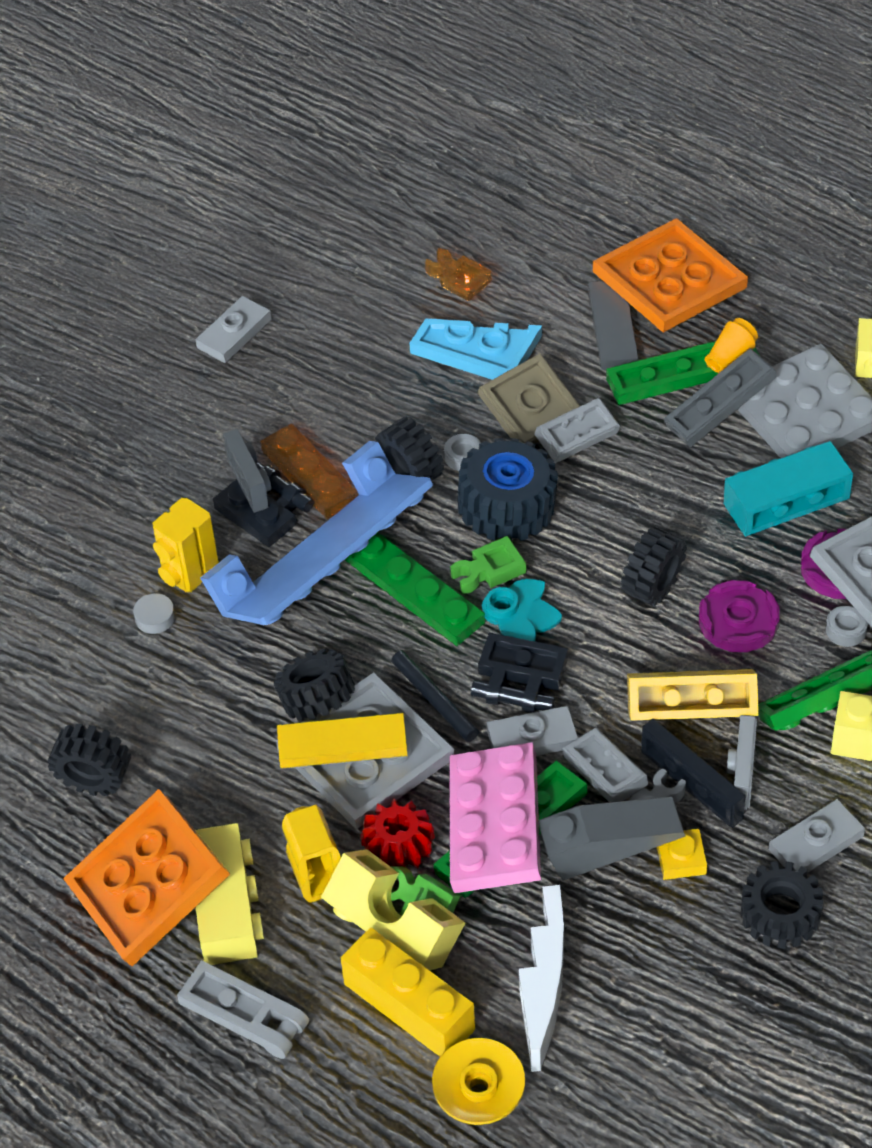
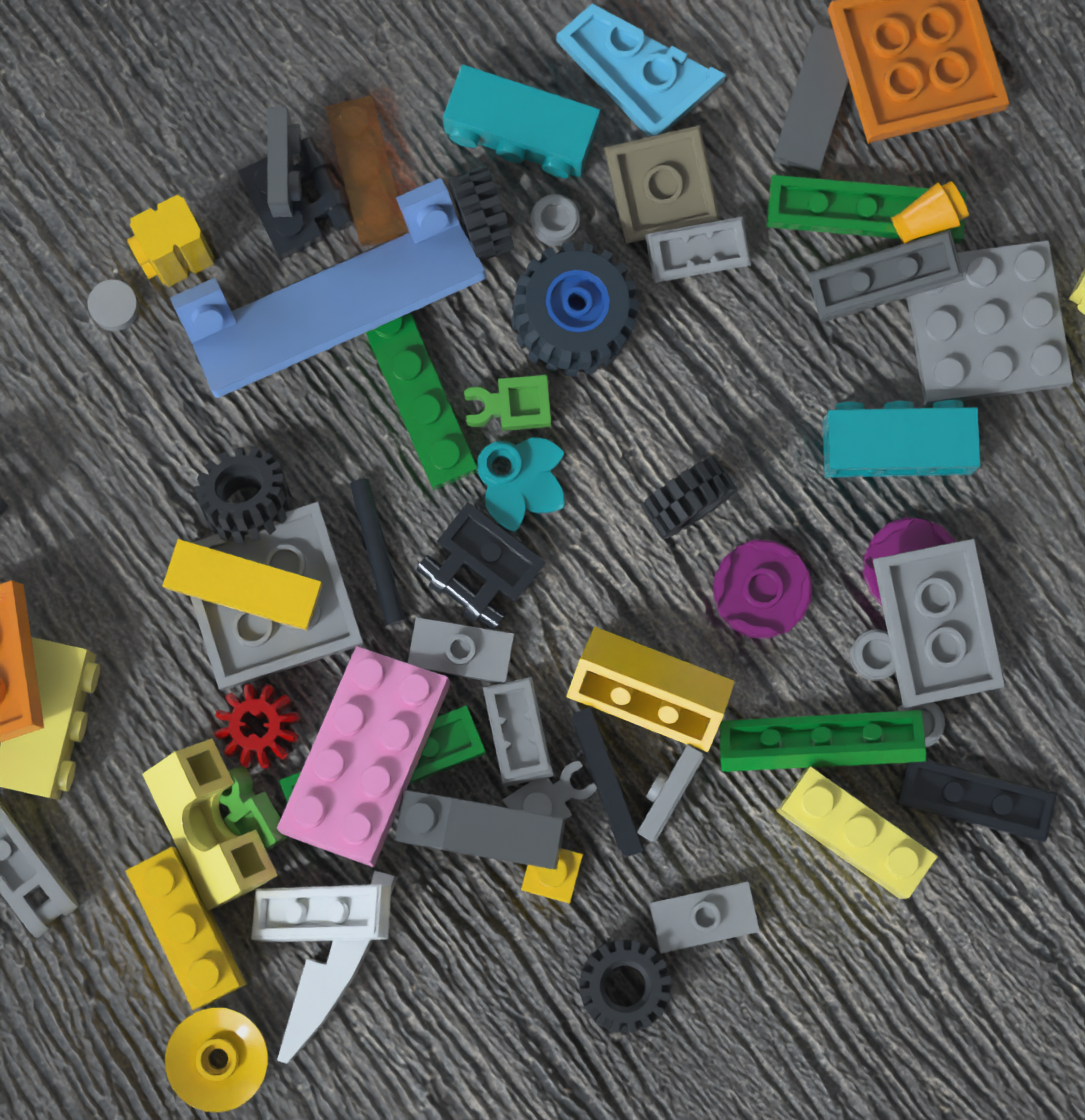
camera: 20 degrees right, 30 degrees up
(310, 850) = (149, 719): yellow brick -> none
(427, 395) = (520, 122): none -> teal brick
(514, 933) = (321, 913): none -> white tile

